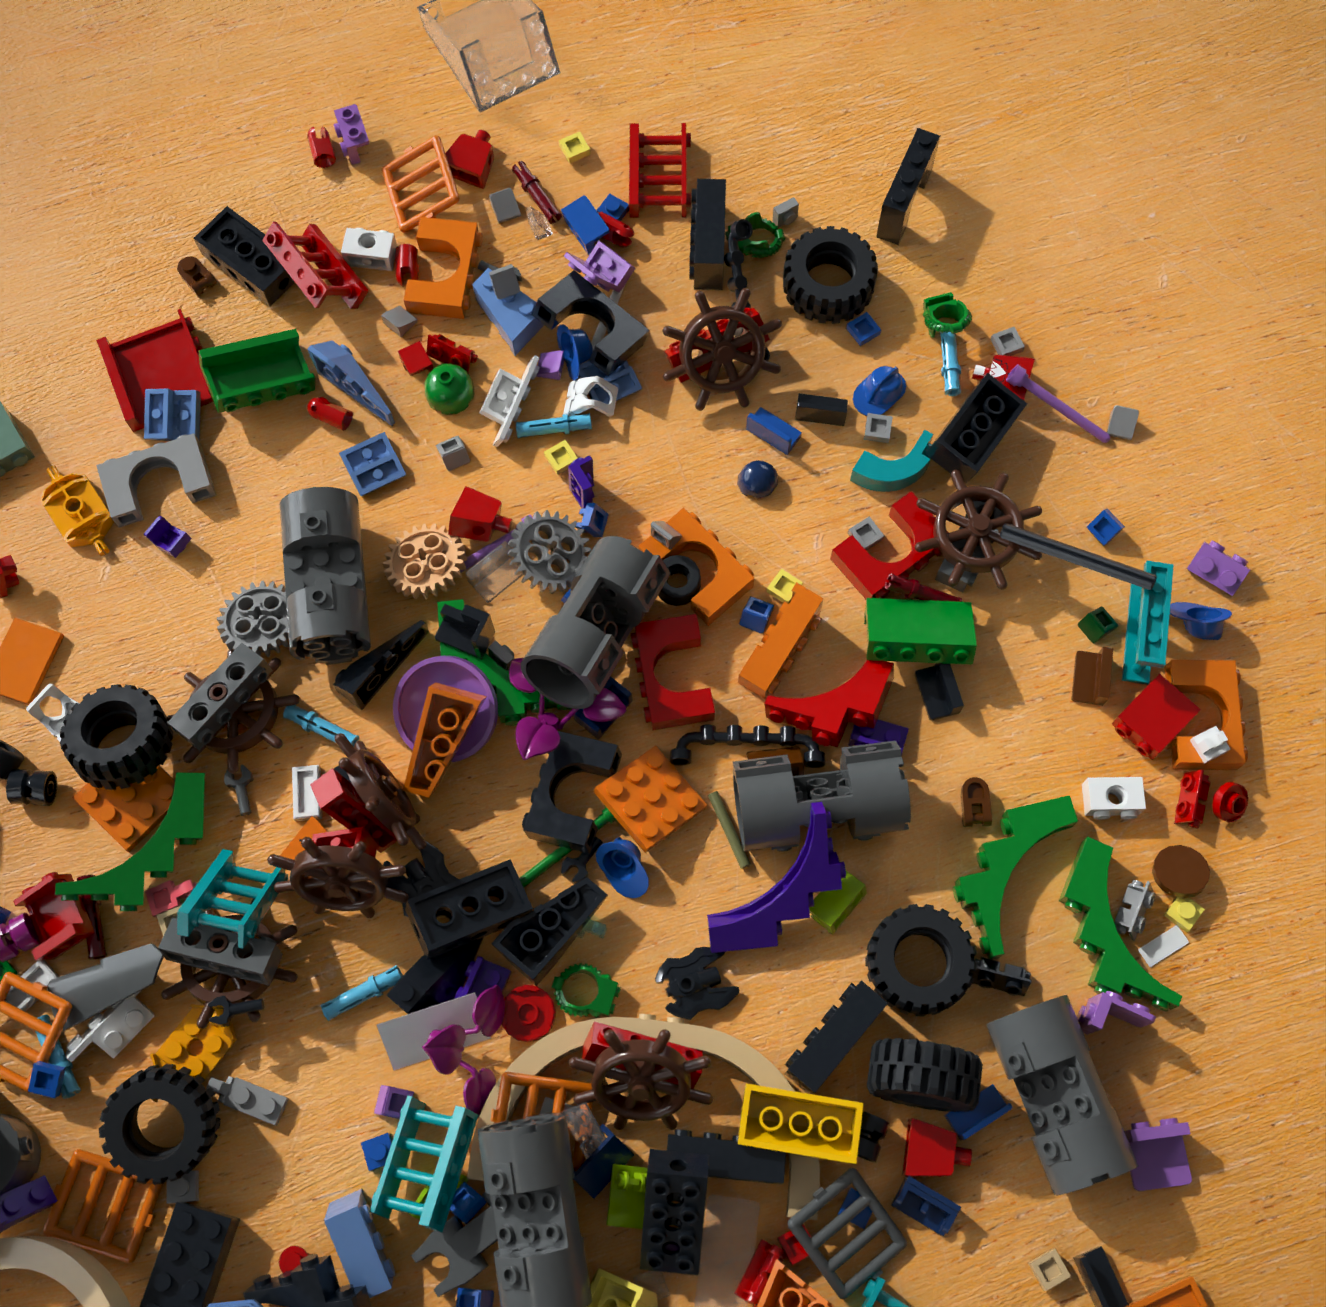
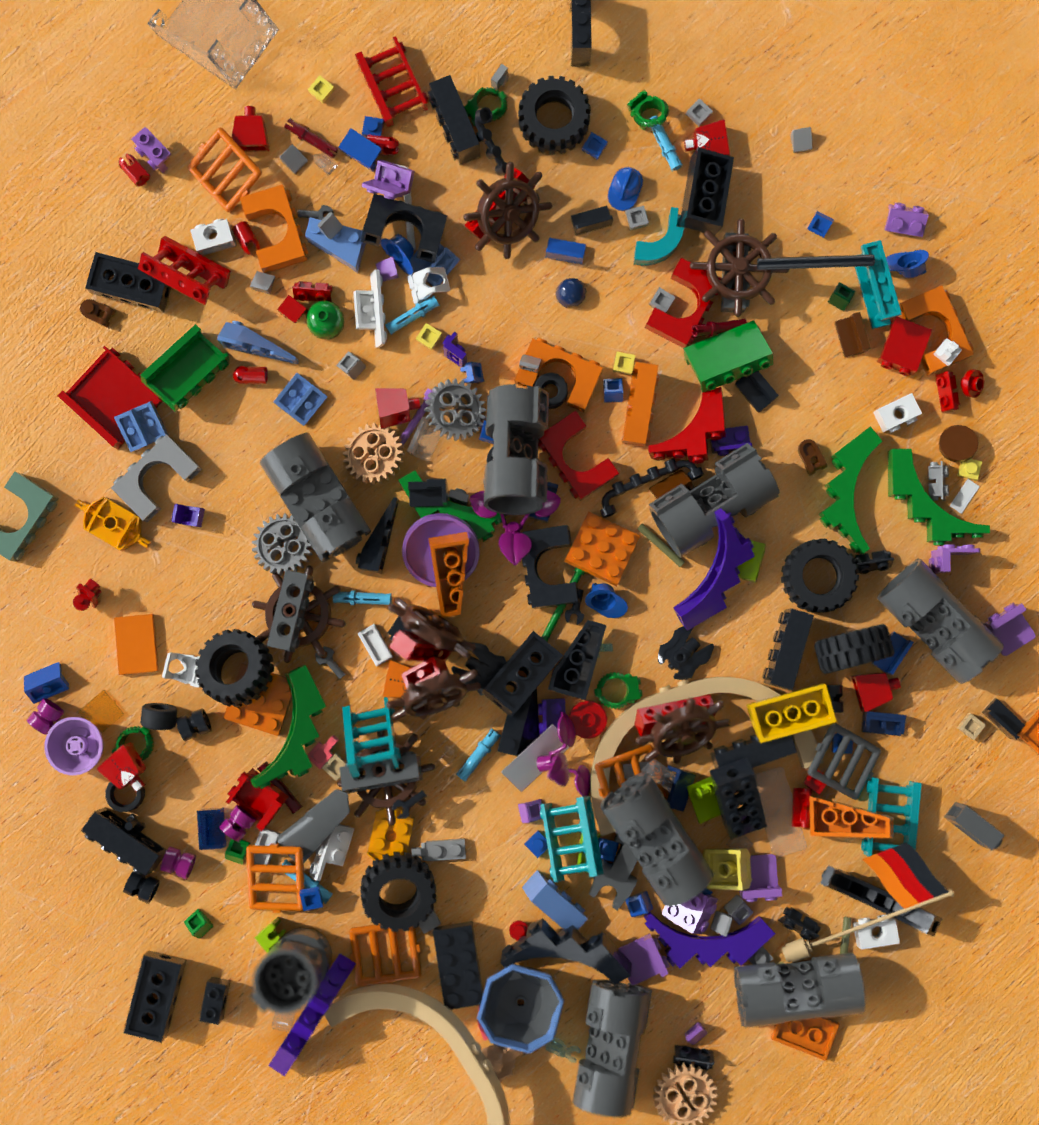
camera: 25 degrees left, 15 degrees up
(1020, 378) = (720, 140): medium lavender piece -> none

